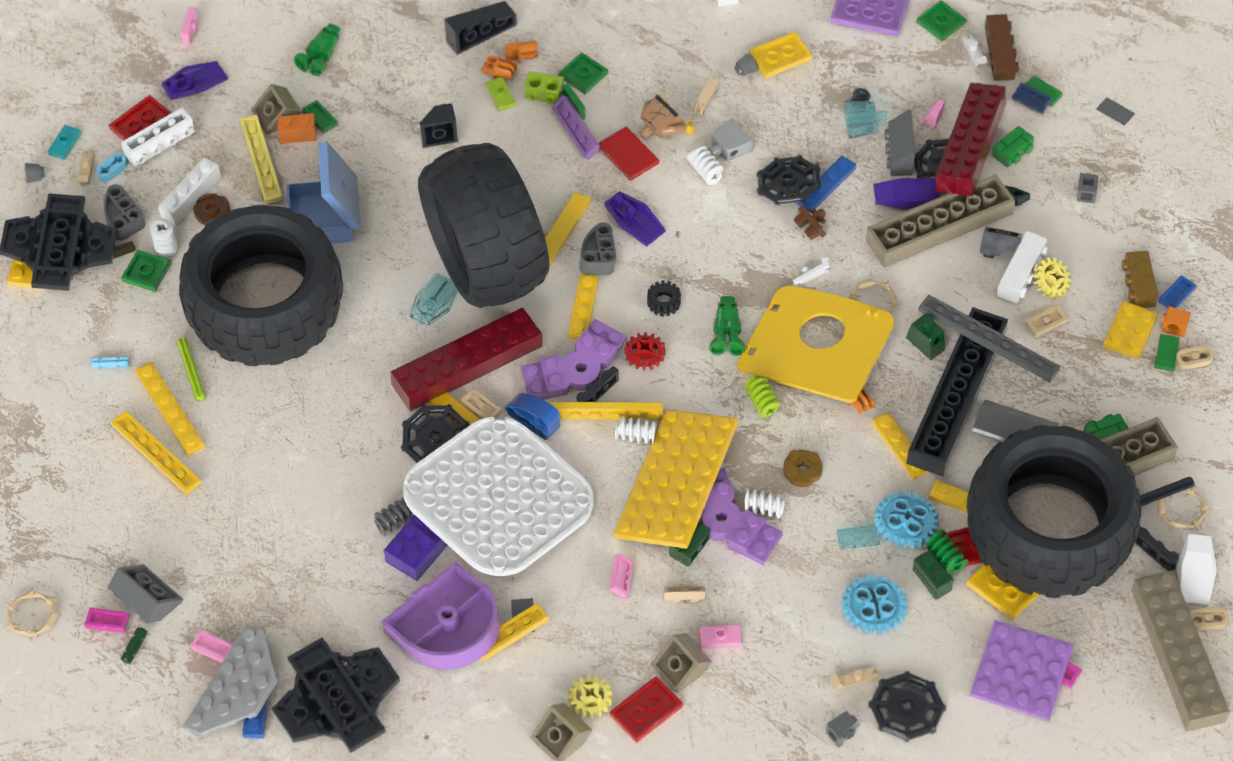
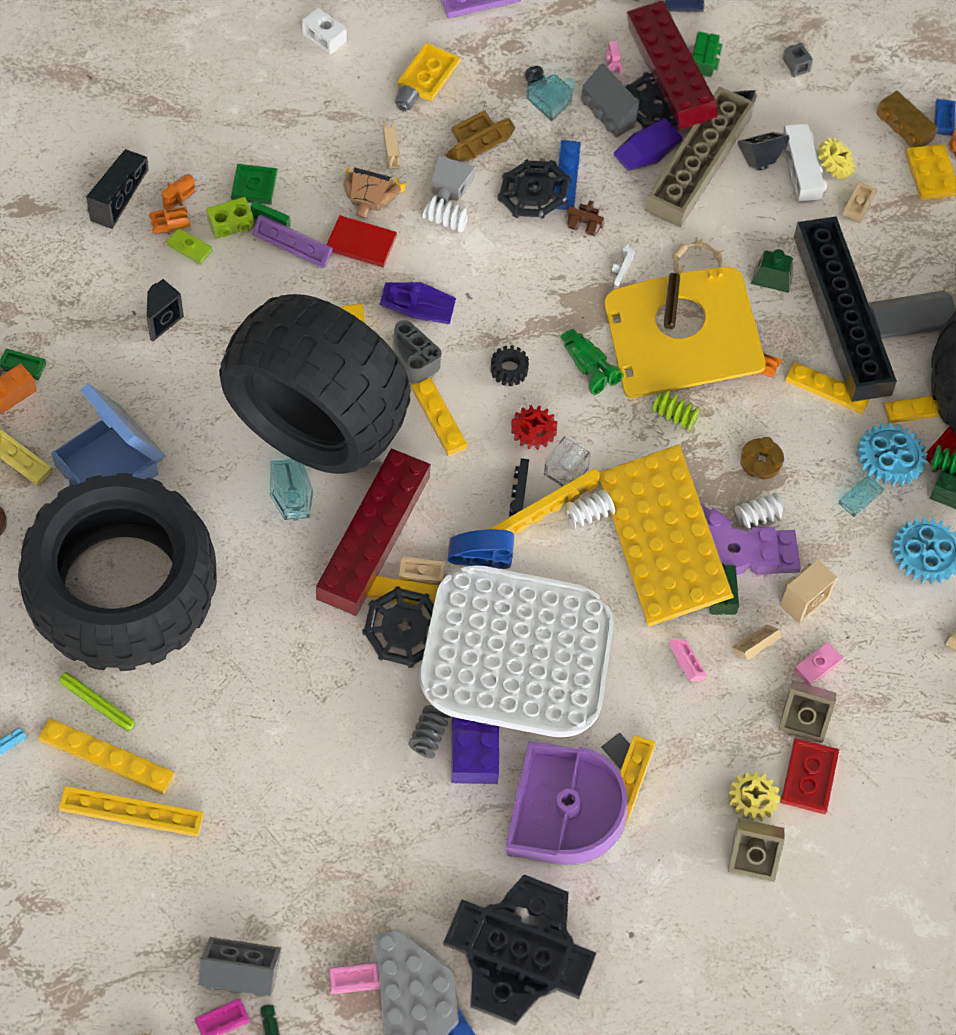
camera: 40 degrees left, 5 degrees up
(556, 375) = (473, 496): medium lavender plate -> none
(646, 386) = (566, 462): none -> clear head
(750, 577) = (807, 590): none -> tan brick
(779, 120) = (478, 136): none -> pearl gold plate
(823, 314) = (671, 301): none -> dark brown axle
(989, 338) = (837, 242): dark grey tile -> none

